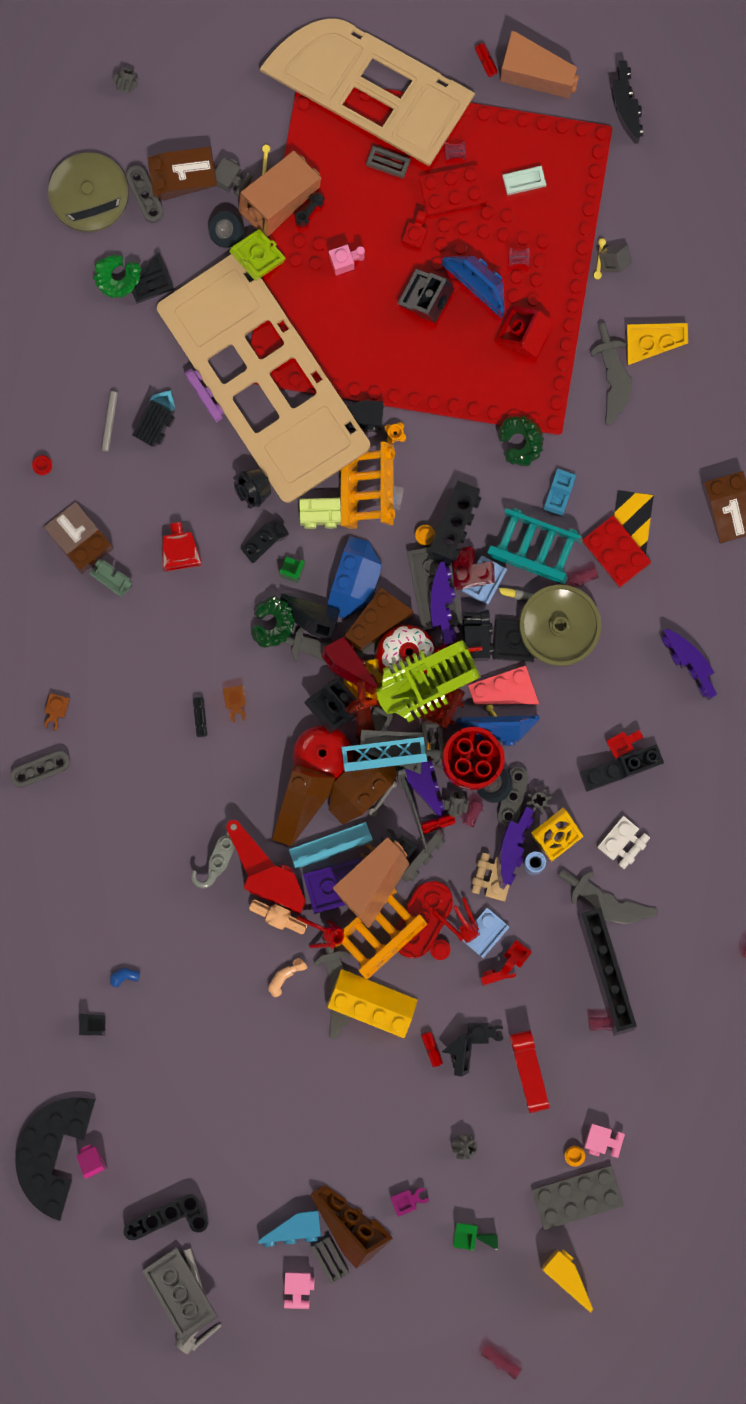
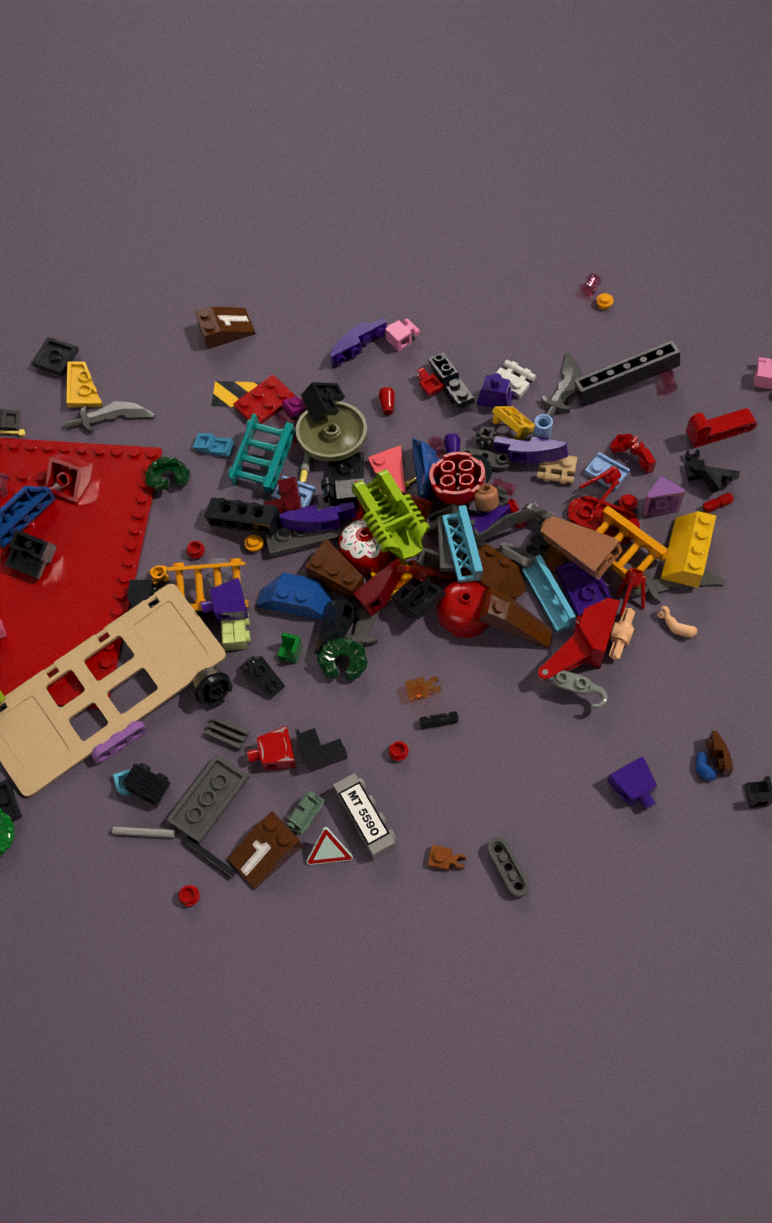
camera: 90 degrees left, 20 degrees down
(72, 598) = (328, 849): none -> piece
(78, 484) = (209, 857): none -> black bar
(102, 635) = (365, 816): none -> brick
(111, 903) = (634, 783): none -> dark purple torso
(136, 483) = (208, 799): none -> dark grey plate
(141, 992) = (719, 749): none -> reddish brown slope
(169, 674) = (398, 751): none -> red plate
(174, 590) = (318, 755): none -> black panel
(213, 488) = (212, 726): none -> dark grey tile
(341, 504) = (227, 601): none -> dark purple torso
(383, 817) = (522, 557): none -> light grey plate
(422, 472) = (195, 549): none -> red plate
(434, 982) = (663, 498): none -> medium lavender slope
(443, 788) = (486, 498): none -> nougat head
(532, 762) = (452, 442): none -> dark purple cone
(534, 737) = (437, 444): none -> clear pink bush
(597, 818) = (495, 391): none -> dark purple torso
(598, 613) = (321, 399): none -> black panel
(602, 587) = (294, 406): none -> magenta plate
(602, 692) = (387, 398): none -> red cone
(695, 714) = (400, 334): none -> bright pink brick
(701, 307) = (54, 356): none -> black plate
(730, 967) = (604, 301): none -> light orange plate

